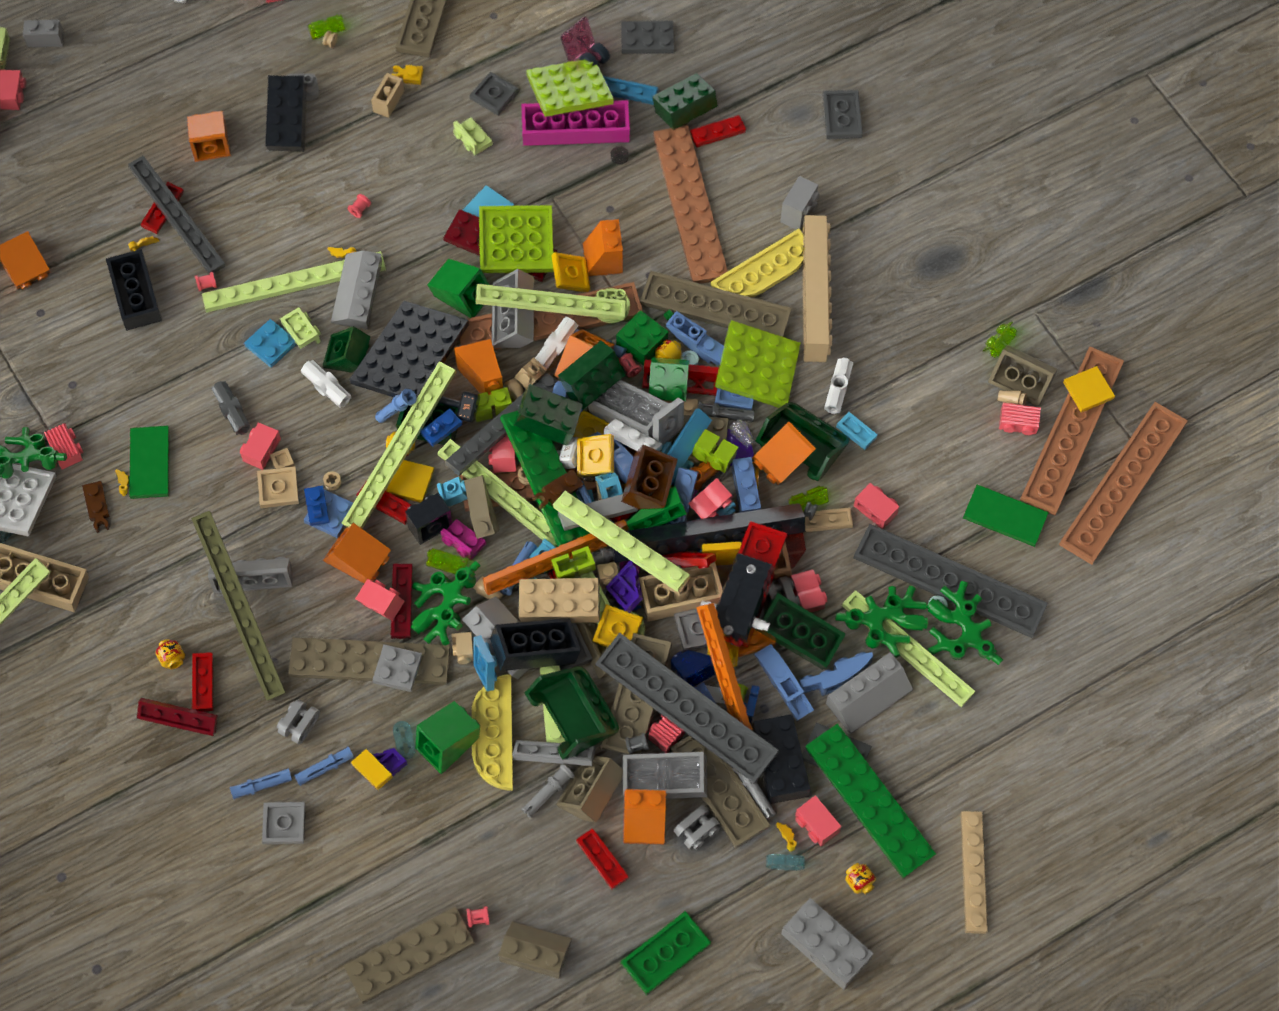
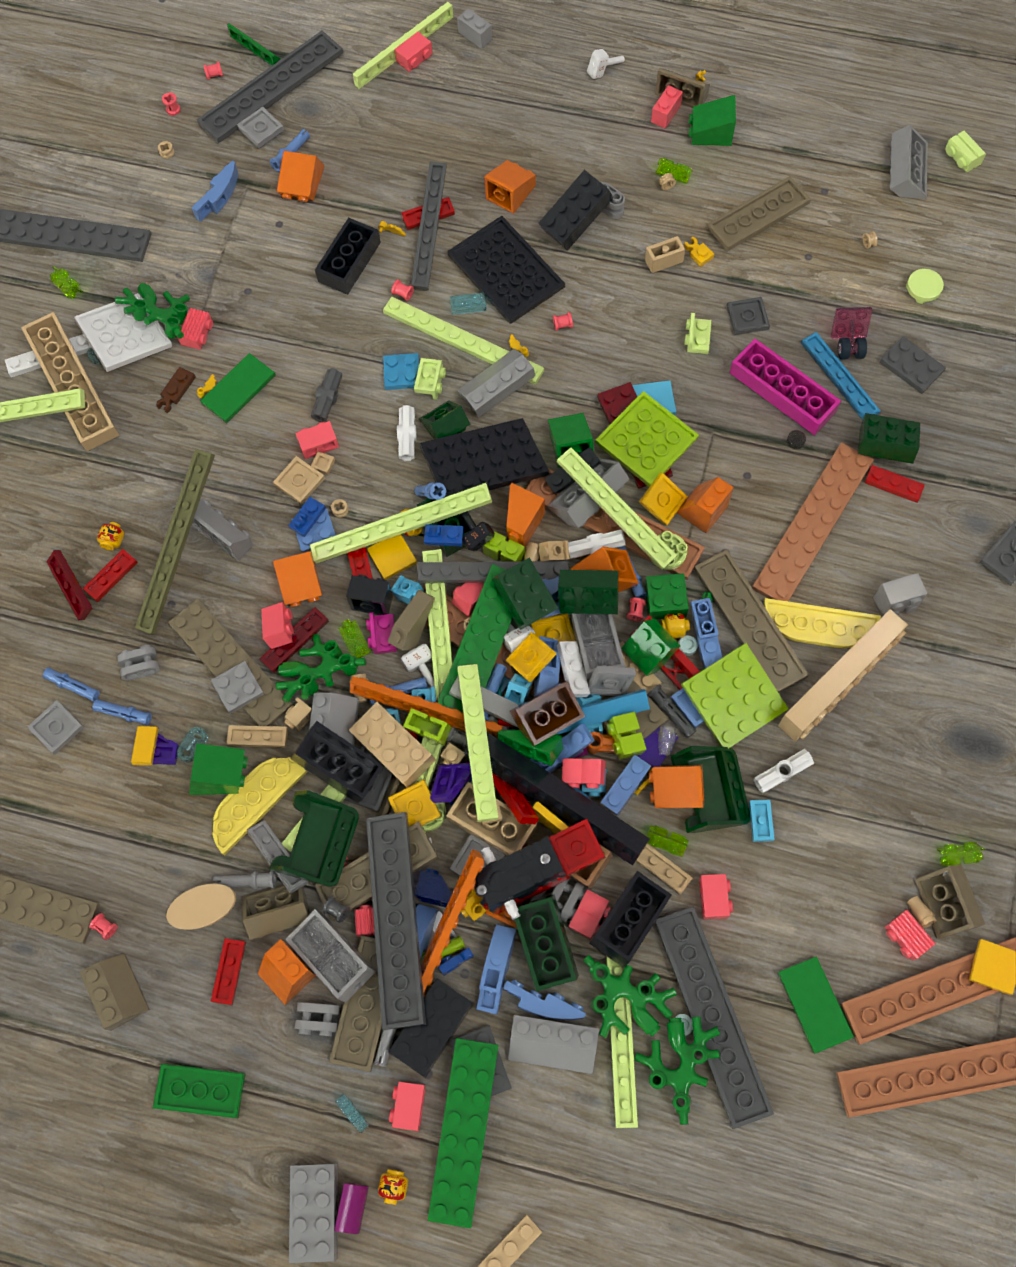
camera: 50 degrees right, 5 degrees up
(268, 251) = (468, 303): none -> clear light blue plate
(272, 201) = (506, 269): none -> black plate
(448, 689) = (257, 736): none -> tan plate
(484, 314) = (561, 479): none -> black plate
(484, 662) = (294, 741): dark azure plate -> none
(509, 533) = (417, 659): none -> white piece
(536, 835) = (201, 906): none -> tan shield
(551, 492) = (485, 659): reddish brown plate -> none
(569, 87) = (805, 355): lime plate -> none
(788, 835) = (378, 1092): yellow piece -> none
(795, 548) = (615, 871): clear red slope -> none
(810, 510) = (655, 851): dark grey bush -> none
(839, 566) = (630, 919): none -> black brick
(847, 916) = (351, 1208): none -> magenta brick

